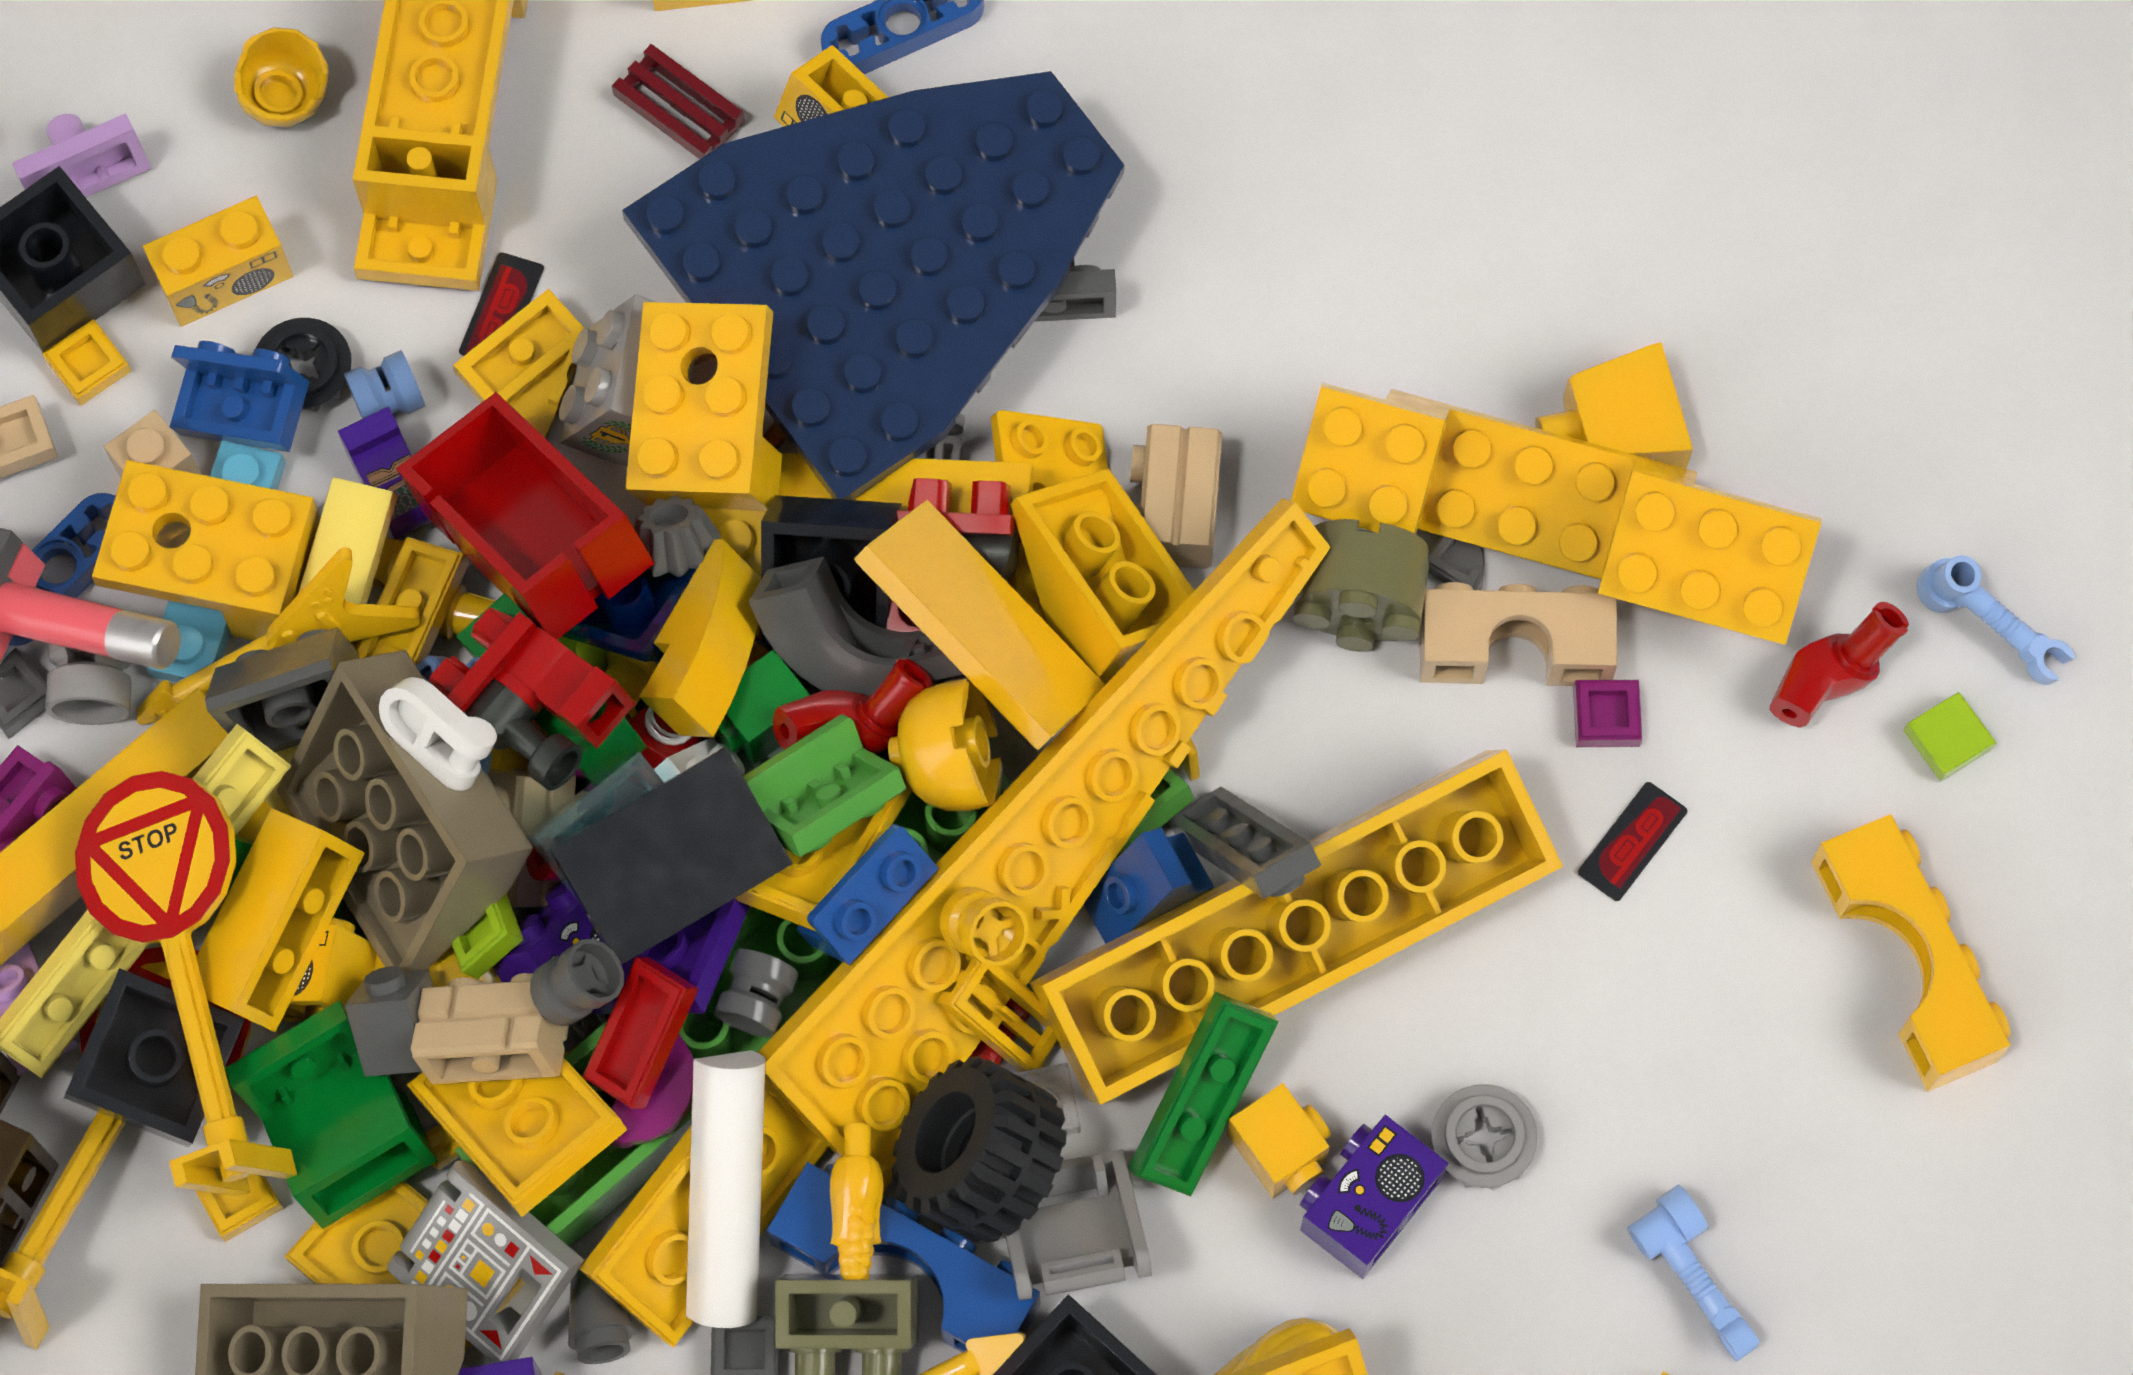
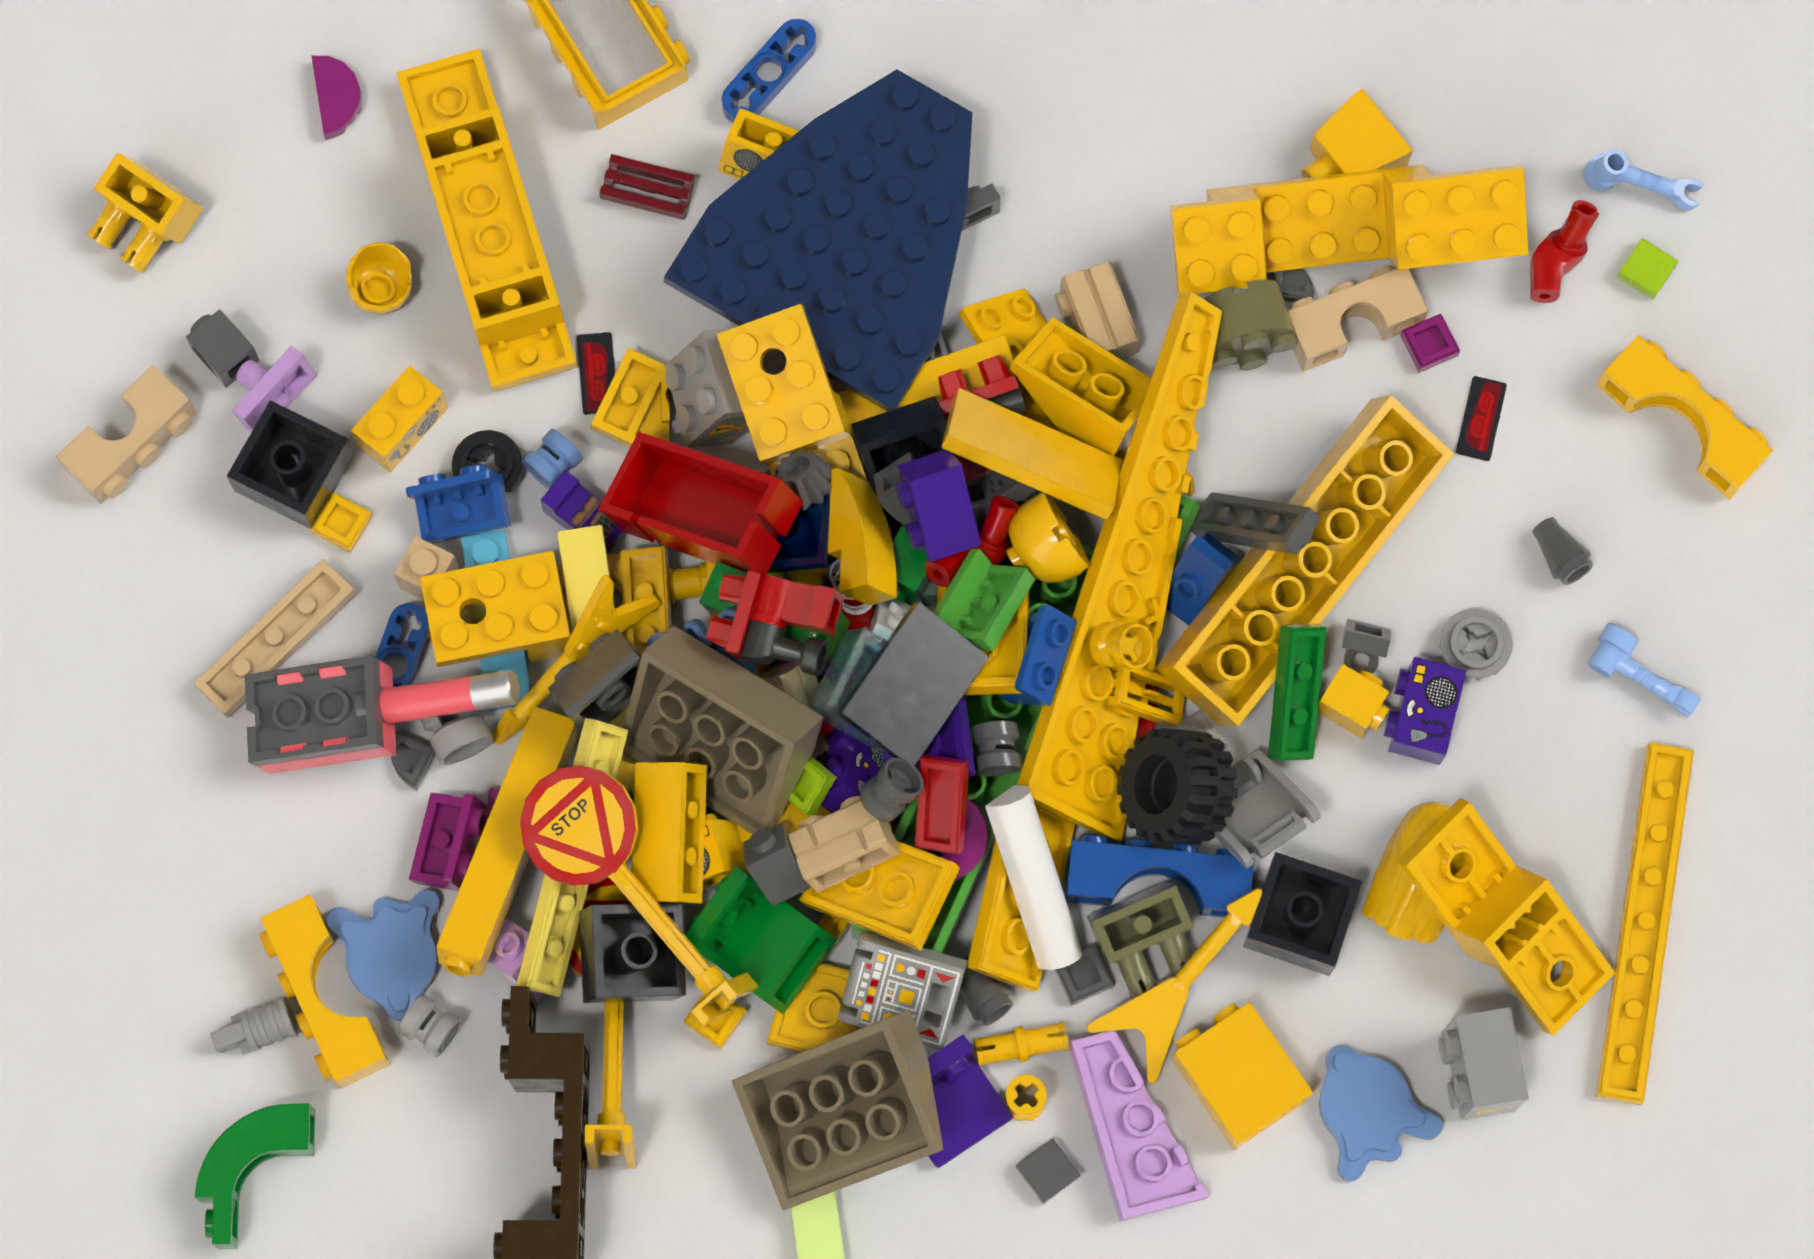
camera: 25 degrees left, 5 degrees up
(44, 82) = (220, 346): none -> dark grey brick
(436, 732) = (715, 664): white plate -> none
(819, 636) = (937, 505): none -> dark purple brick
(856, 1203) = (1117, 852): yellow piece -> none
(1334, 1065) = (1365, 639): none -> dark grey tile
(1659, 1065) = (1563, 553): none -> dark grey cone

